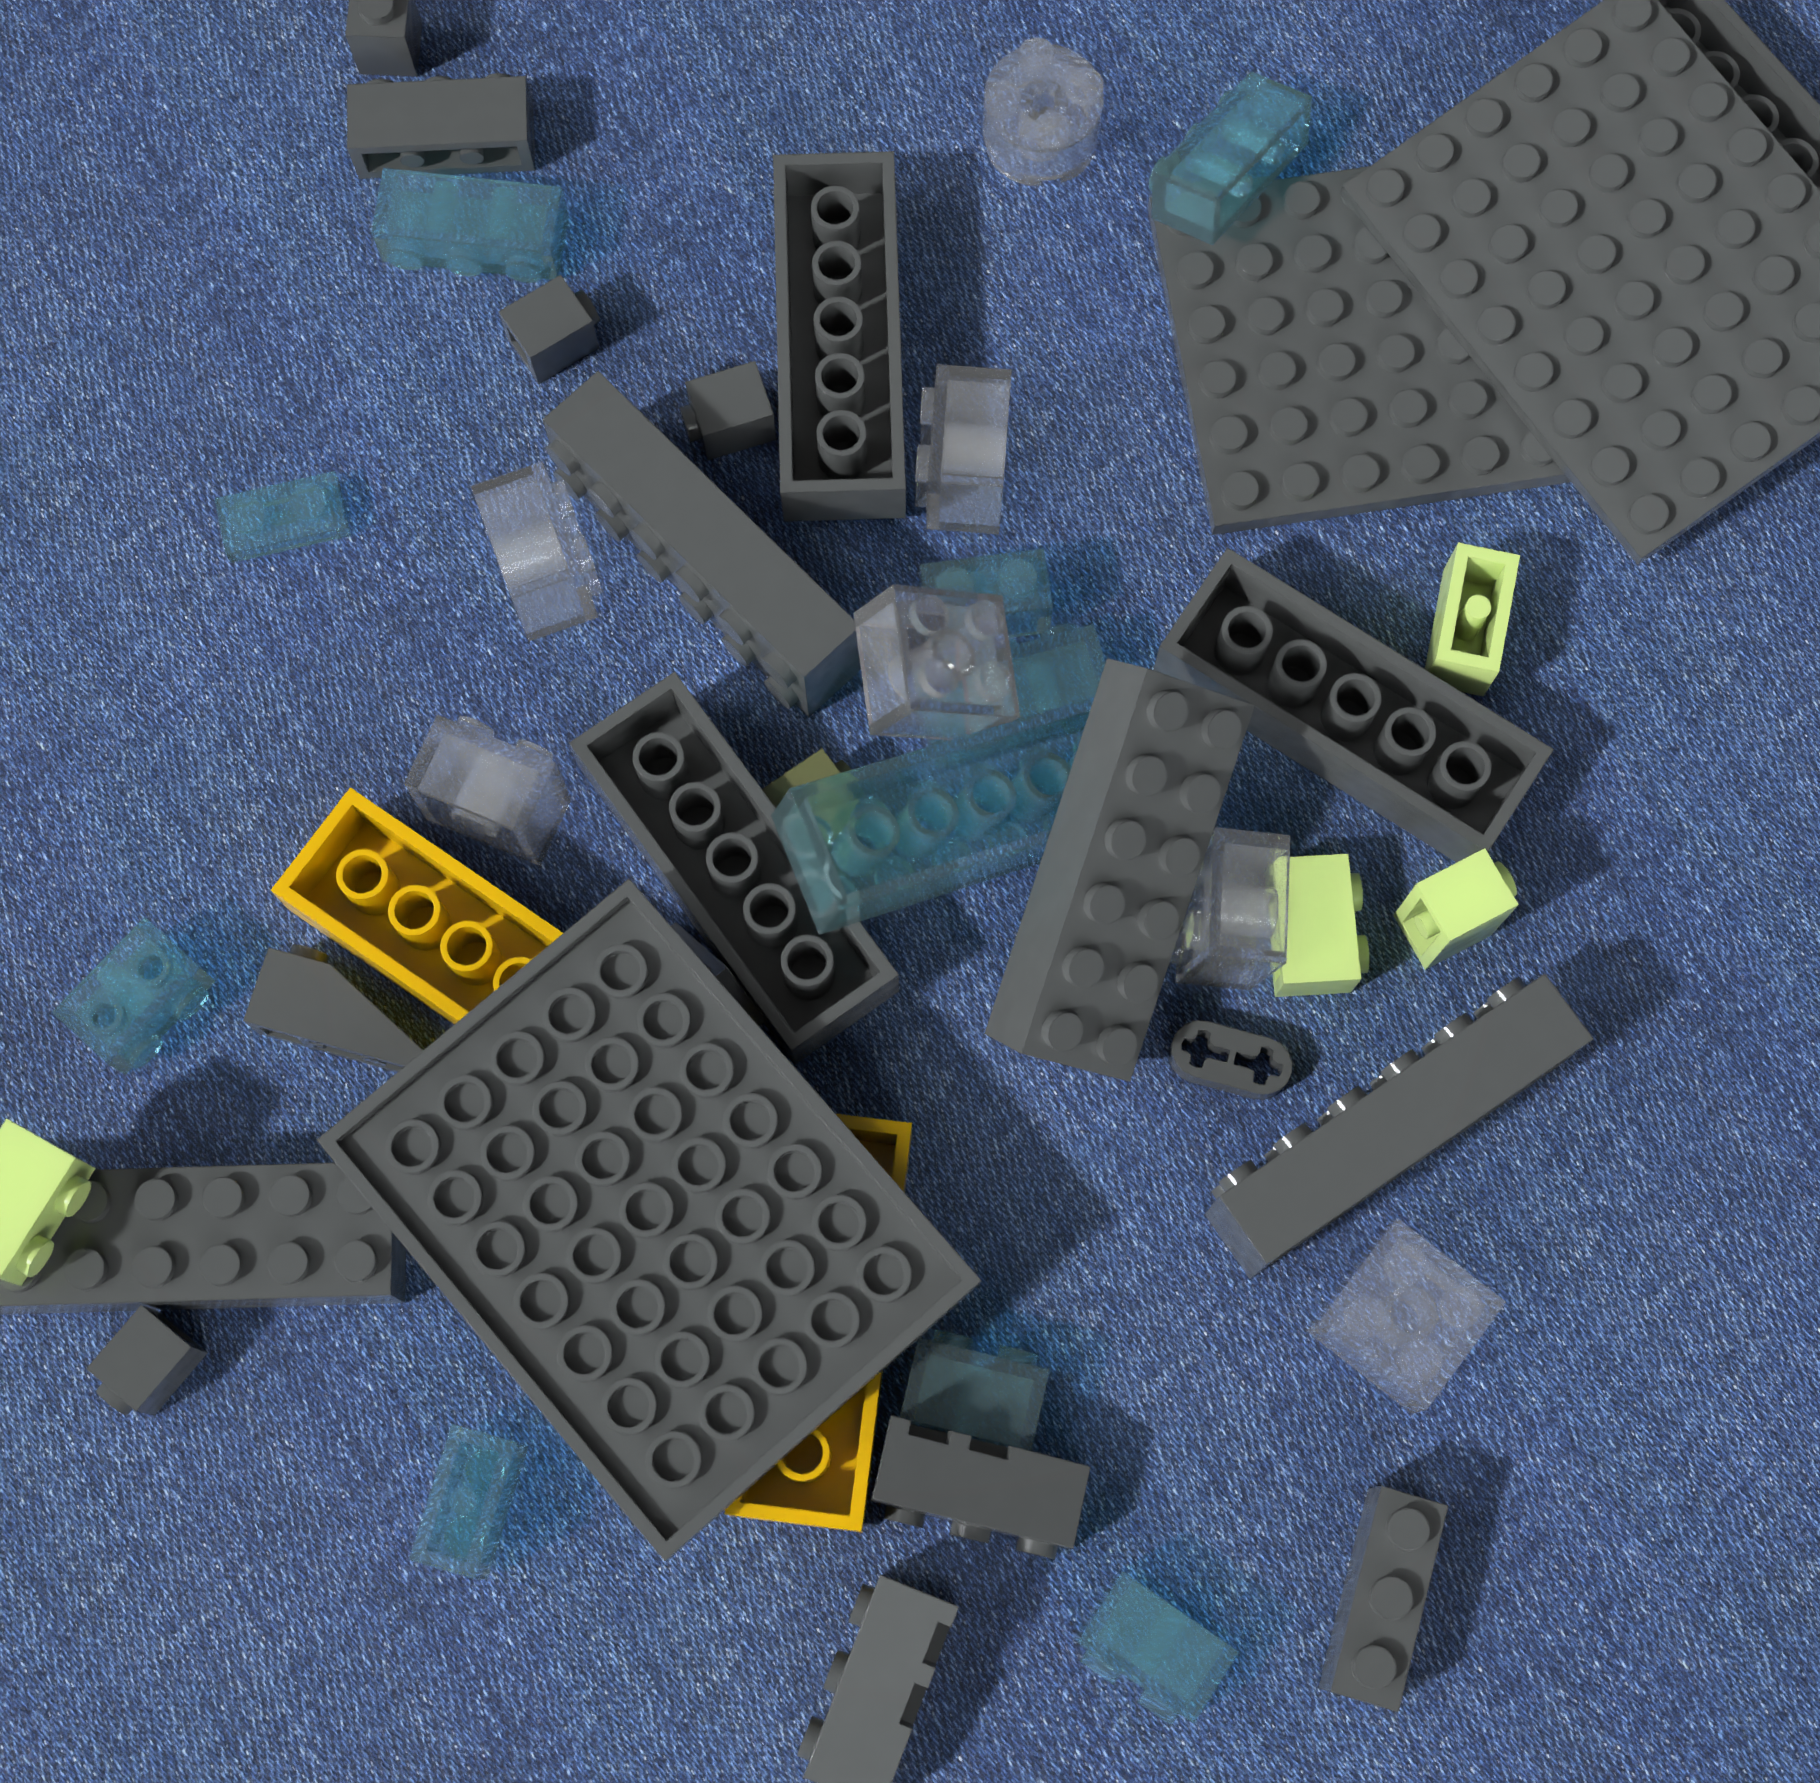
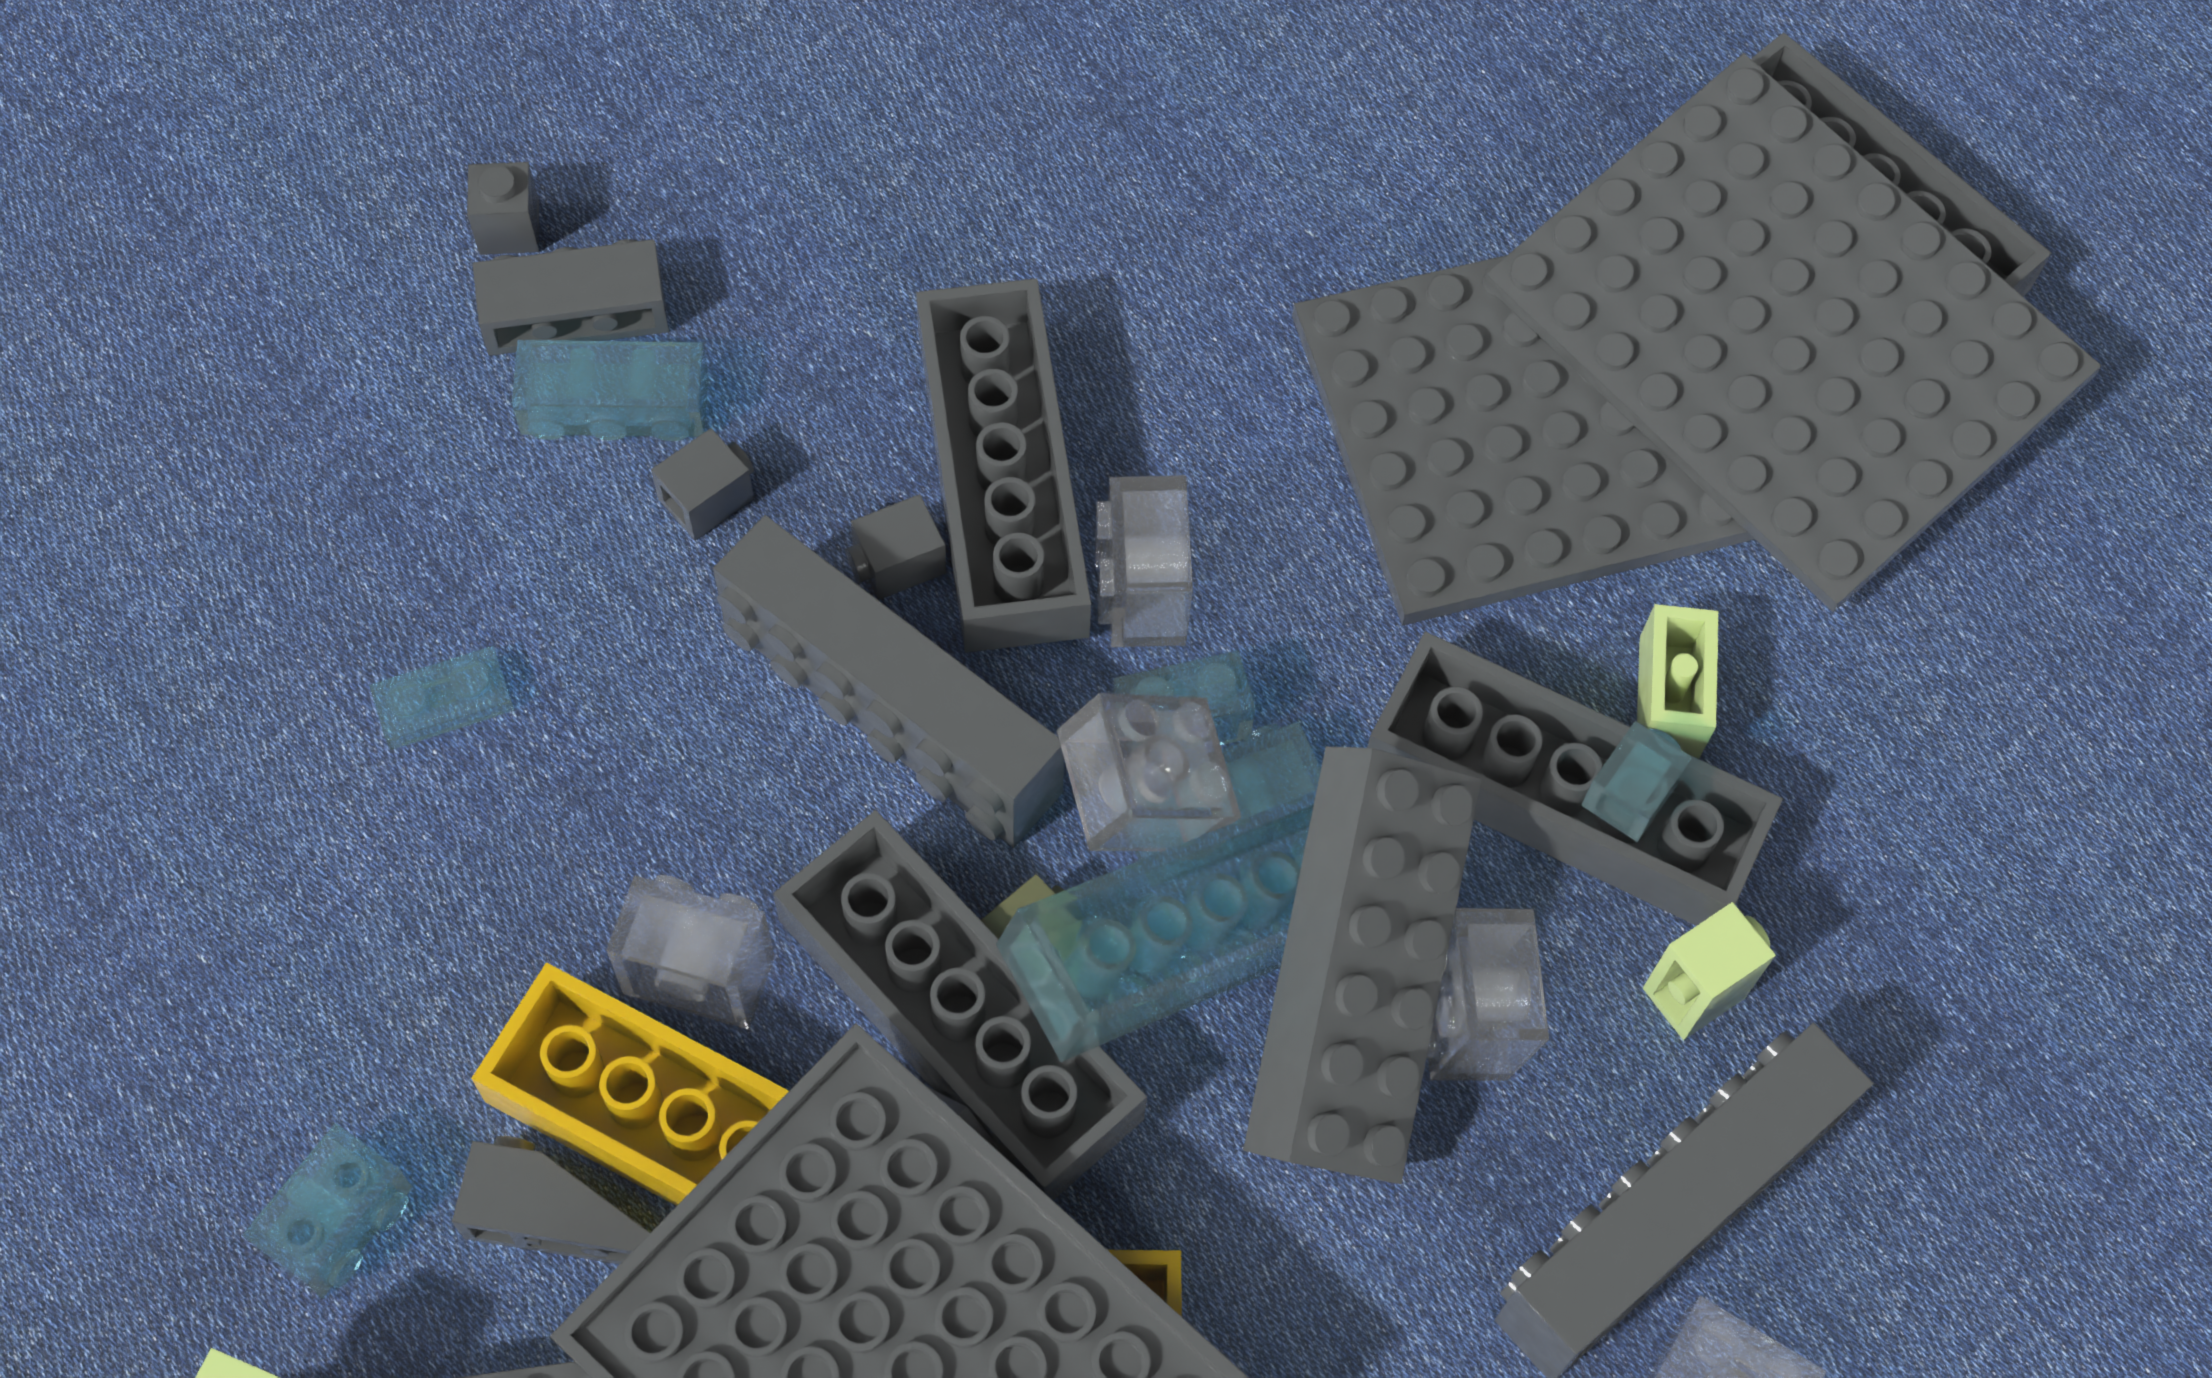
camera: 10 degrees left, 10 degrees down
(539, 549) = (718, 703): clear brick -> none
(1042, 113) = (1177, 232): clear brick -> none
(1230, 157) = (1370, 257): clear light blue brick -> none
(1234, 1045) = (1495, 1169): dark grey beam -> none
(1322, 932) = (1582, 1025): yellowish green brick -> none
(1411, 718) = (1637, 780): none -> clear light blue brick

